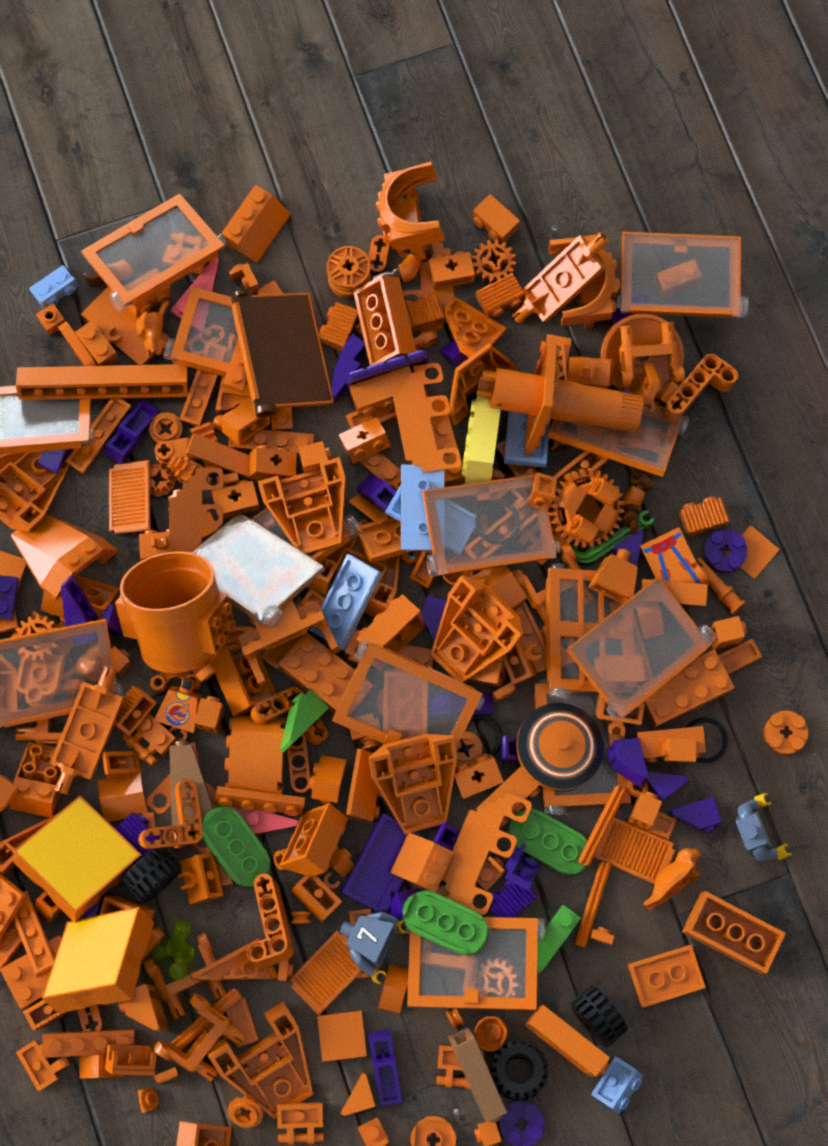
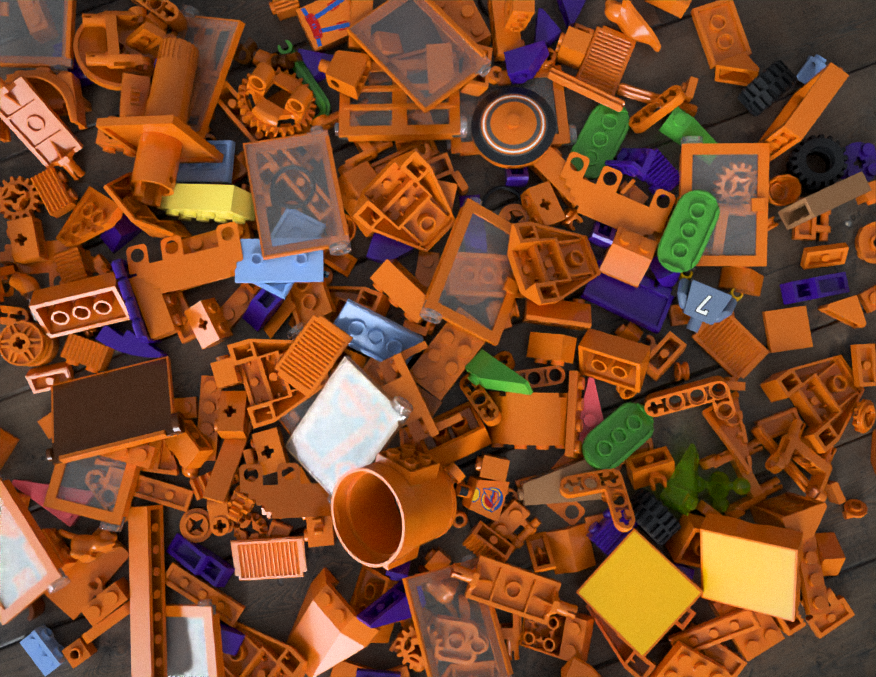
camera: 90 degrees left, 10 degrees up
(130, 1060) = (830, 533): orange hinge -> none
(157, 507) = (278, 529): none -> orange tile
(184, 911) = (682, 487): none -> clear neon green slope
(244, 272) = (28, 452): orange bracket -> none
(318, 287) = (43, 377): none -> orange slope
(327, 538) = (312, 354): none -> orange window
(419, 1078) = (824, 255): none -> orange plate
(466, 804) = (571, 215): none -> orange plate
(543, 491) = (261, 139): orange bracket -> none
(586, 908) = (666, 101): none -> orange beam
(623, 987) = (736, 70): none -> orange slope

